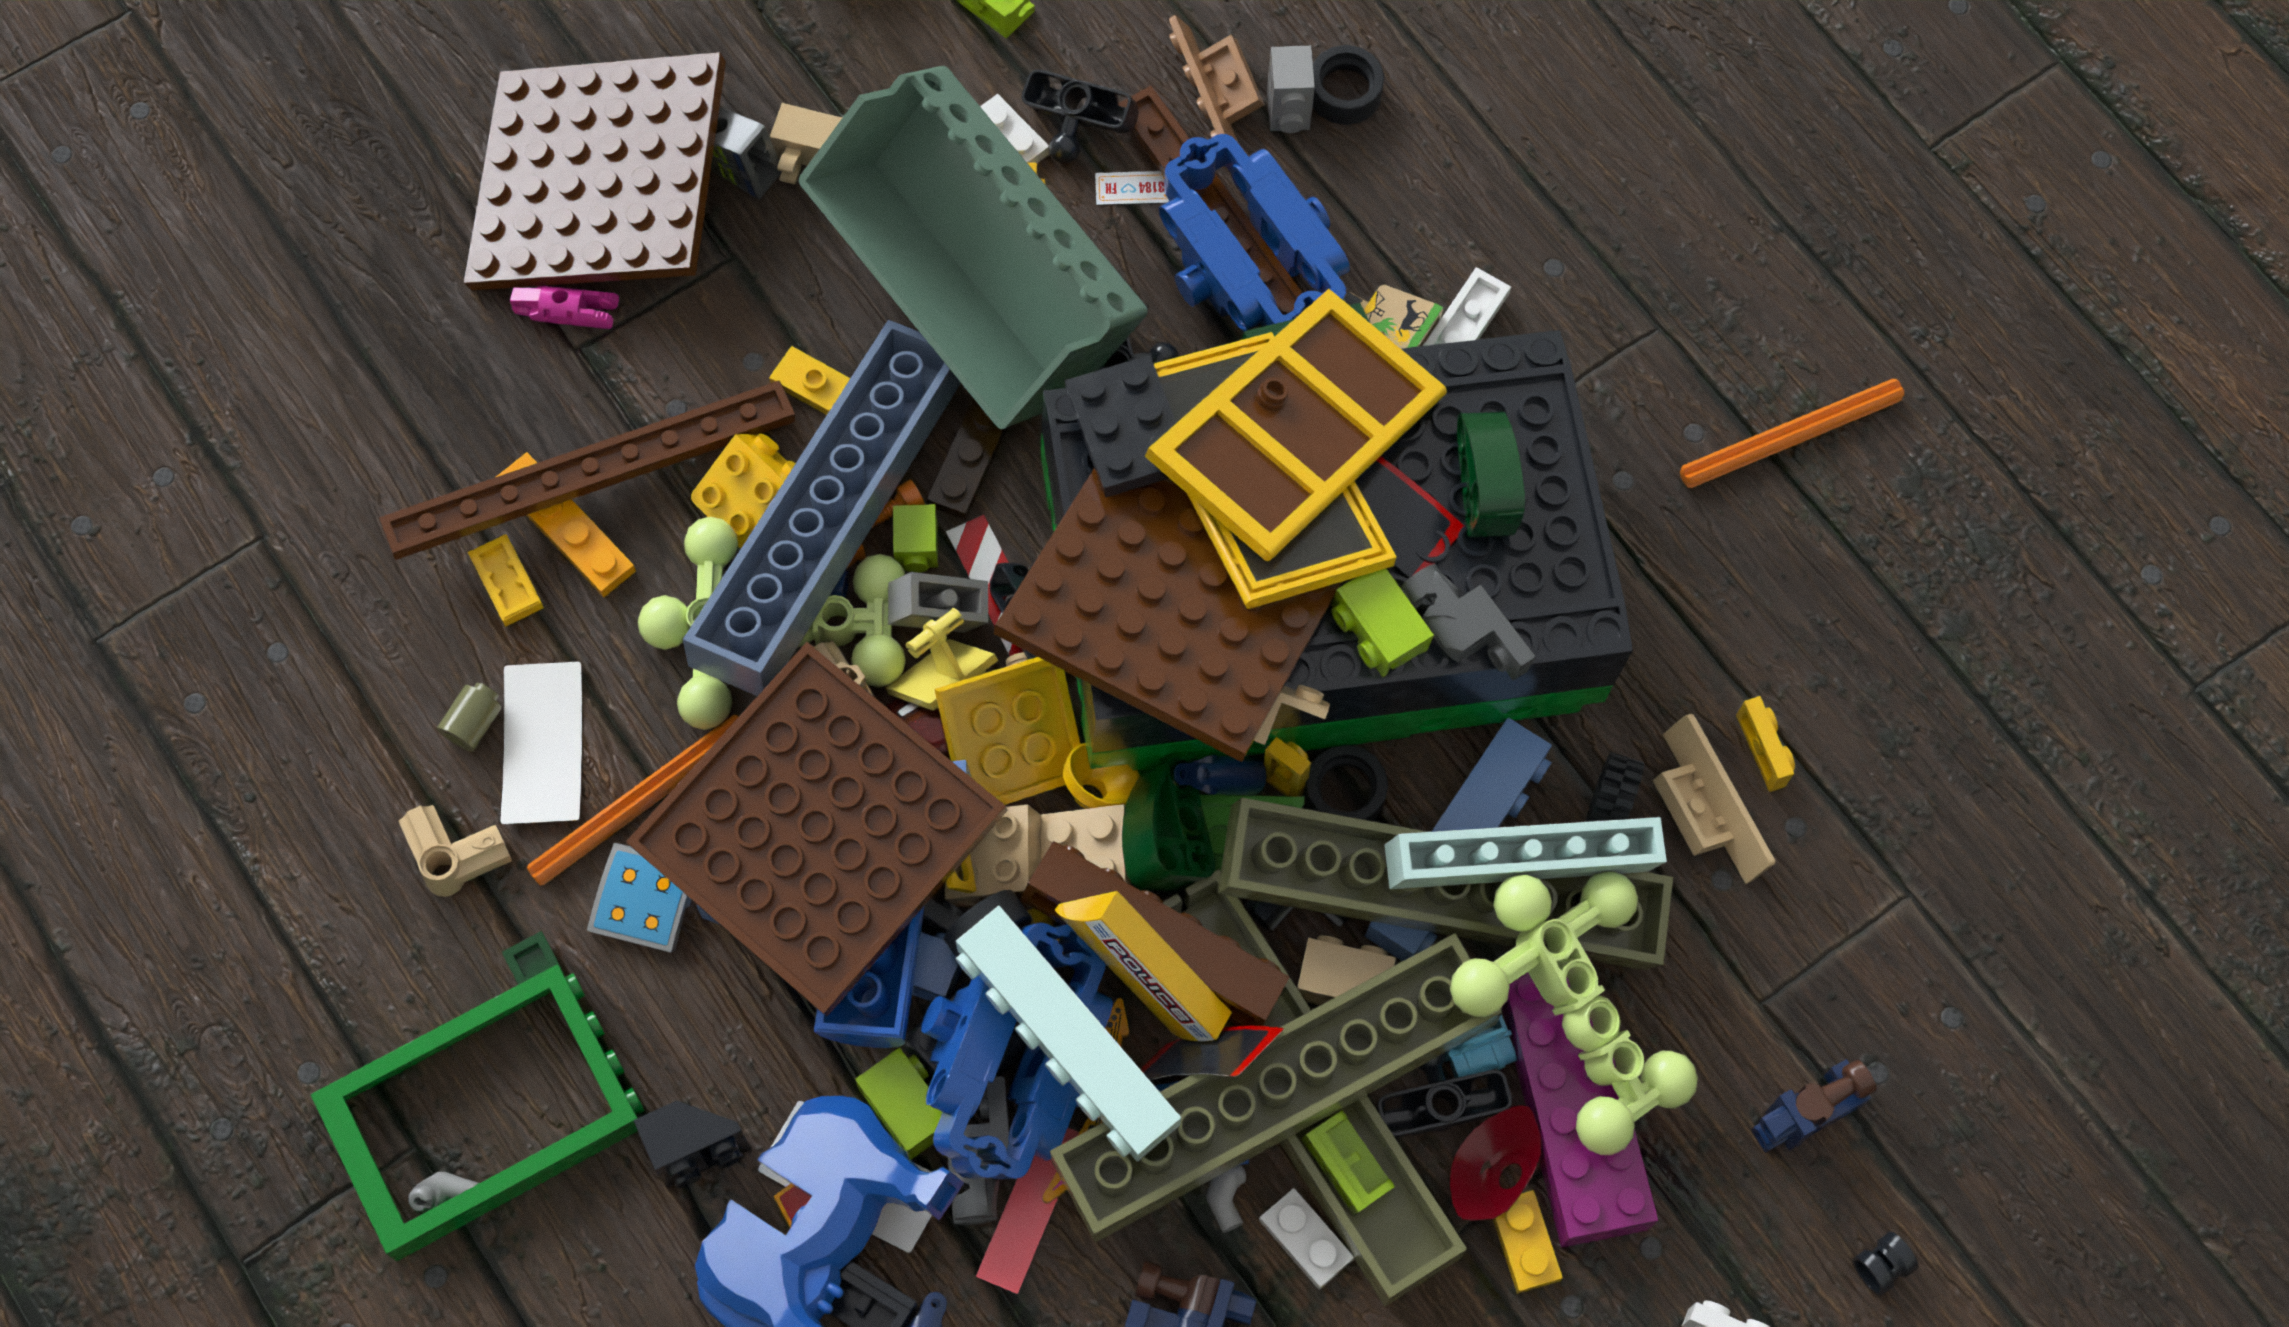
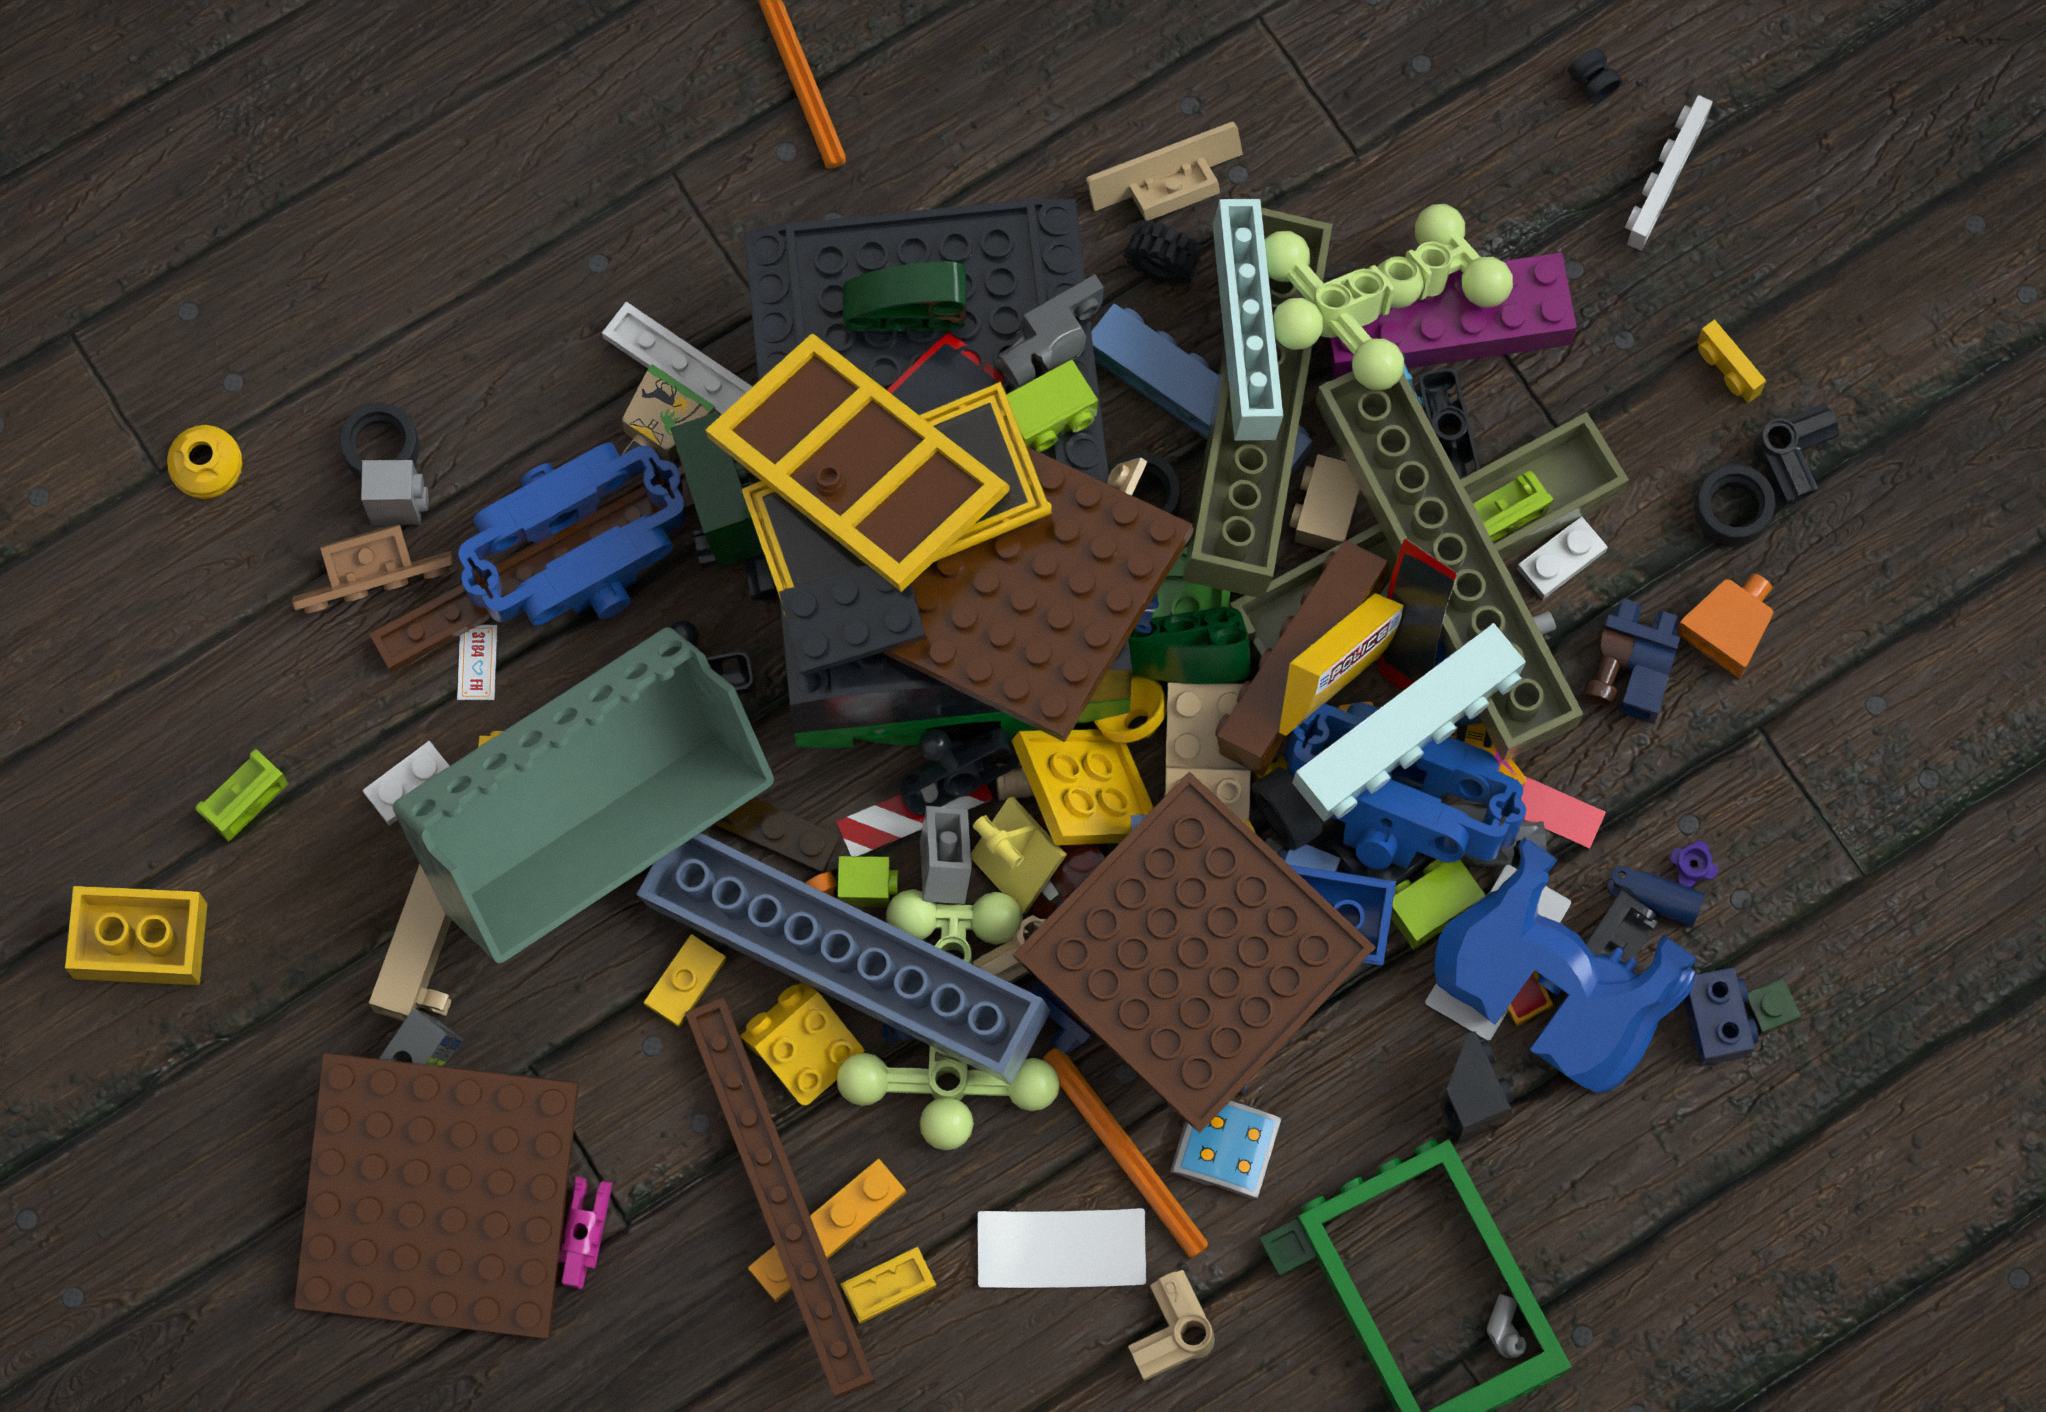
camera: 85 degrees left, 5 degrees up
(470, 716) = (1034, 1314): olive brick -> none
(1099, 110) = (395, 679): black piece -> none
(1503, 1140) = (1480, 382): dark red piece -> none
(1527, 1244) = (1567, 372): yellow plate -> none
(1760, 730) = (1126, 116): yellow plate -> none
(1814, 1107) = (1465, 125): hips -> none

